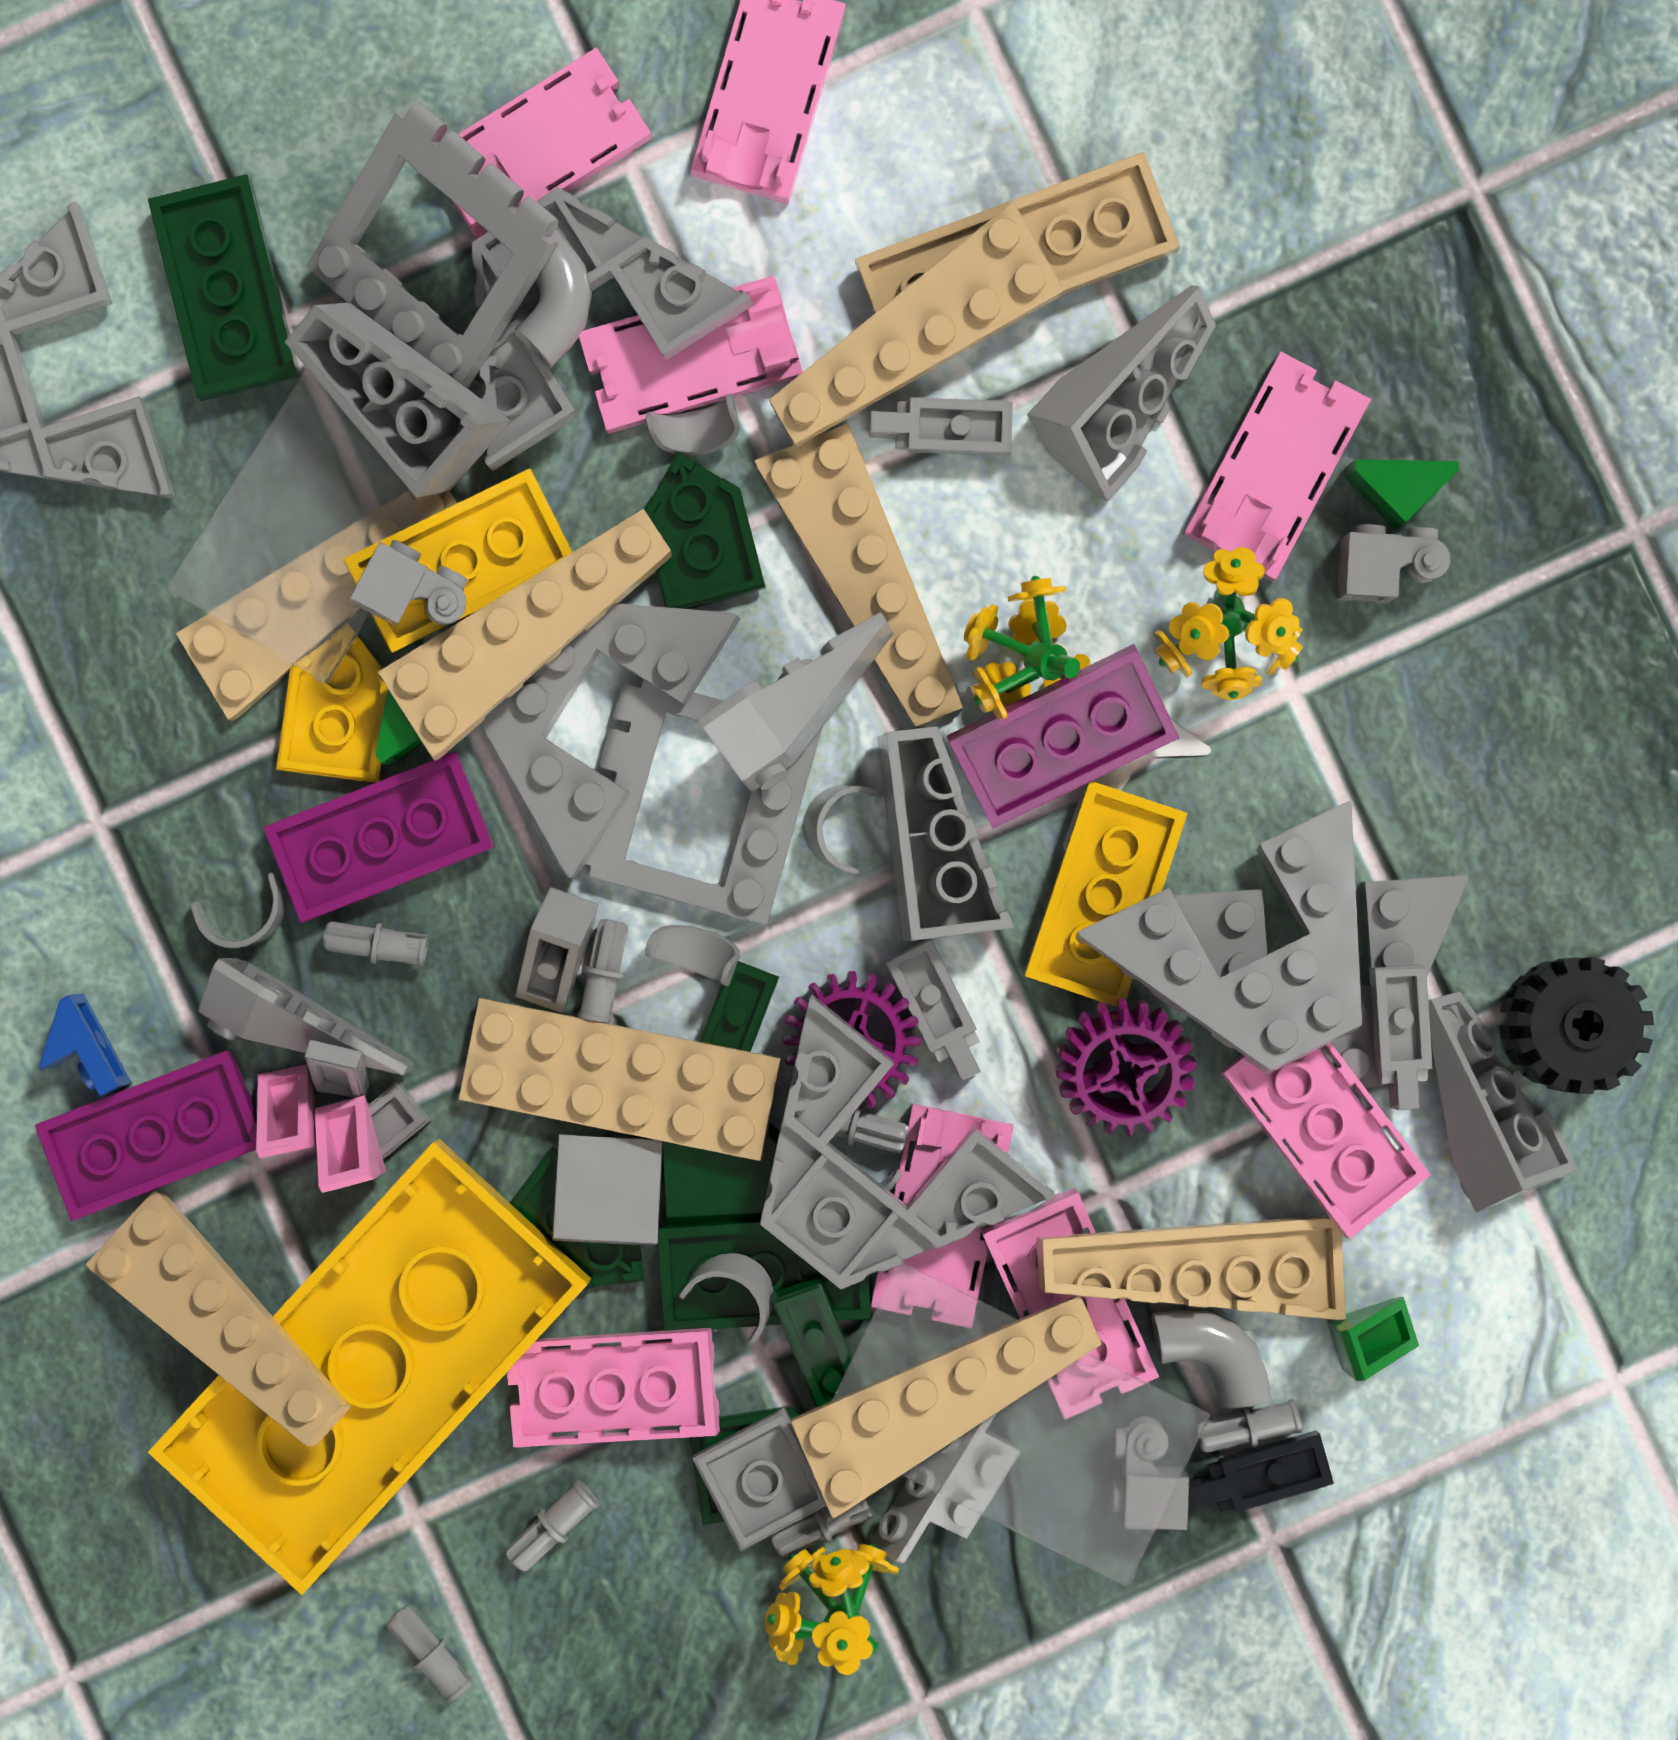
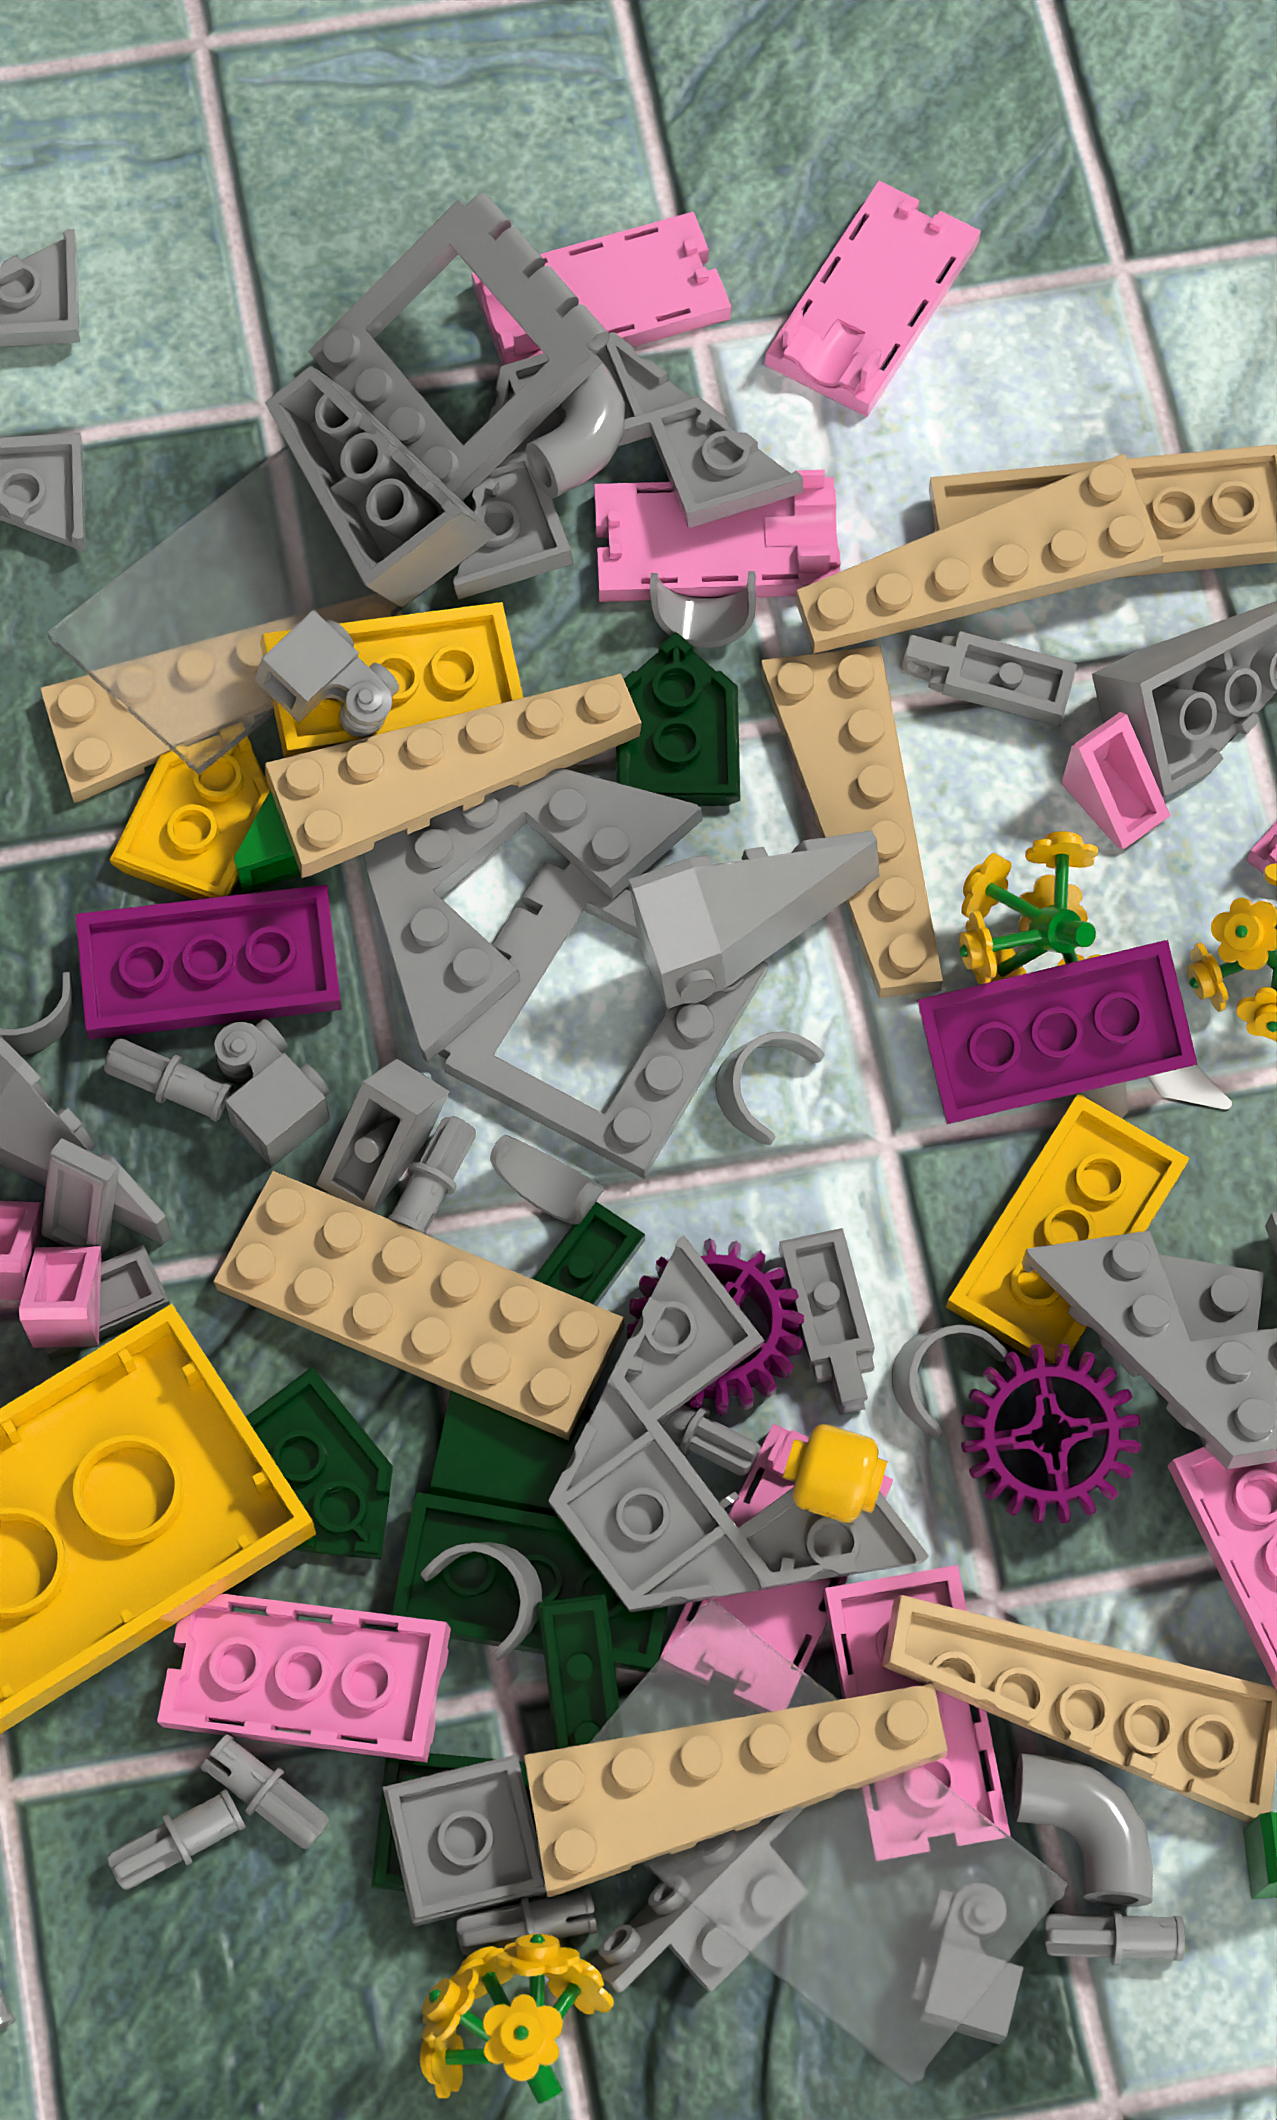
camera: 10 degrees right, 20 degrees down
(223, 287) = (209, 352): dark green plate -> none
(468, 940) = (280, 1100): none -> light grey brick
(606, 1476) = (265, 1792): none -> light grey axle
(607, 1190) = (366, 1429): light grey tile -> none
(934, 842) = (873, 1128): light grey wedge -> none
(973, 1162) = (835, 1473): none -> yellow head
(1008, 1017) = (908, 1361): none -> light grey helmet
(1067, 503) = (1115, 782): none -> bright pink slope
(1263, 1474) = (1122, 2003): black hinge -> none

